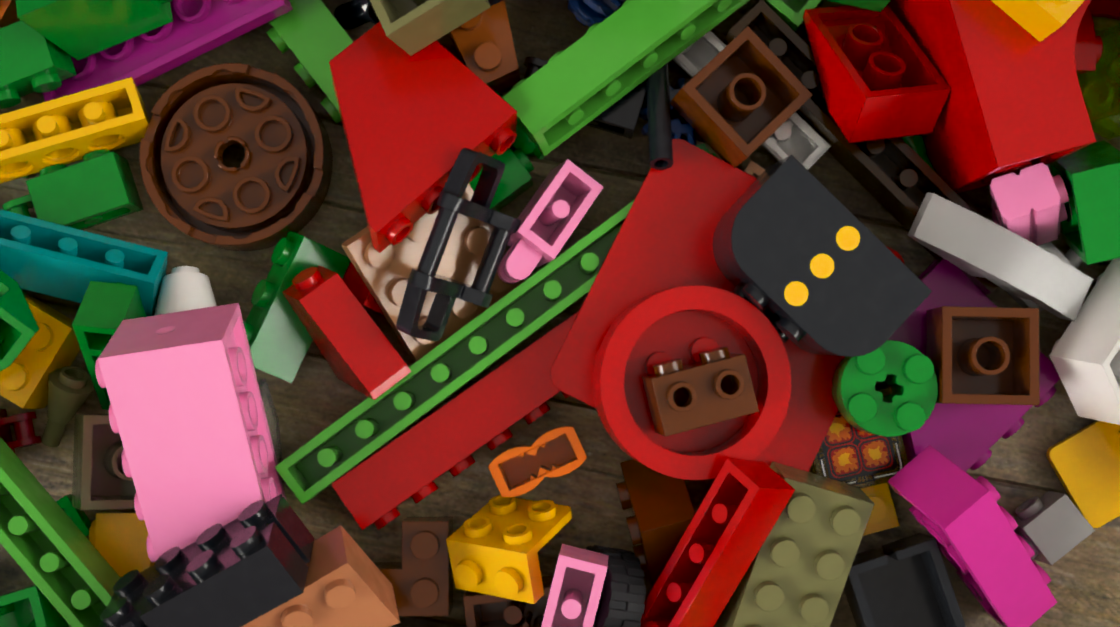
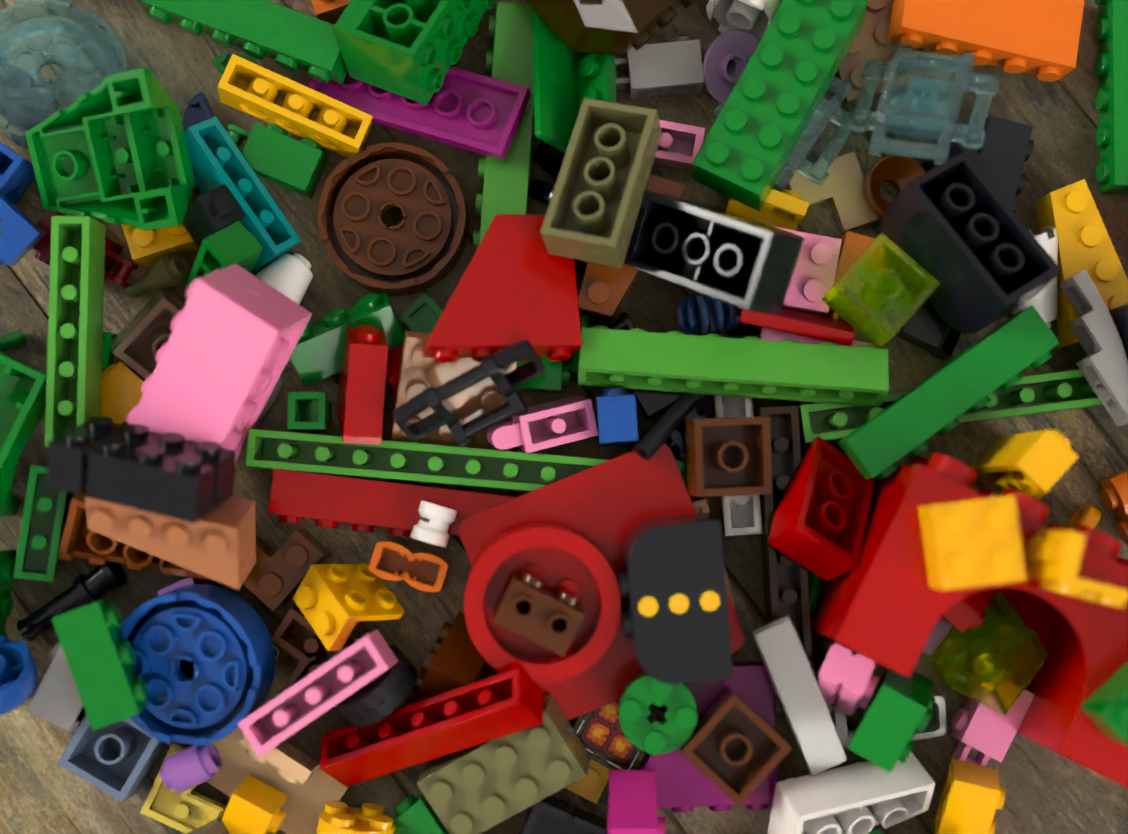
camera: 45 degrees right, 0 degrees up
(57, 297) = (211, 213): none -> black brick
(316, 402) = (308, 411): none -> green brick
(342, 222) = (422, 314): none -> green tile
(525, 400) = (433, 524): none -> white wheel
(607, 156) = (616, 418): none -> blue brick

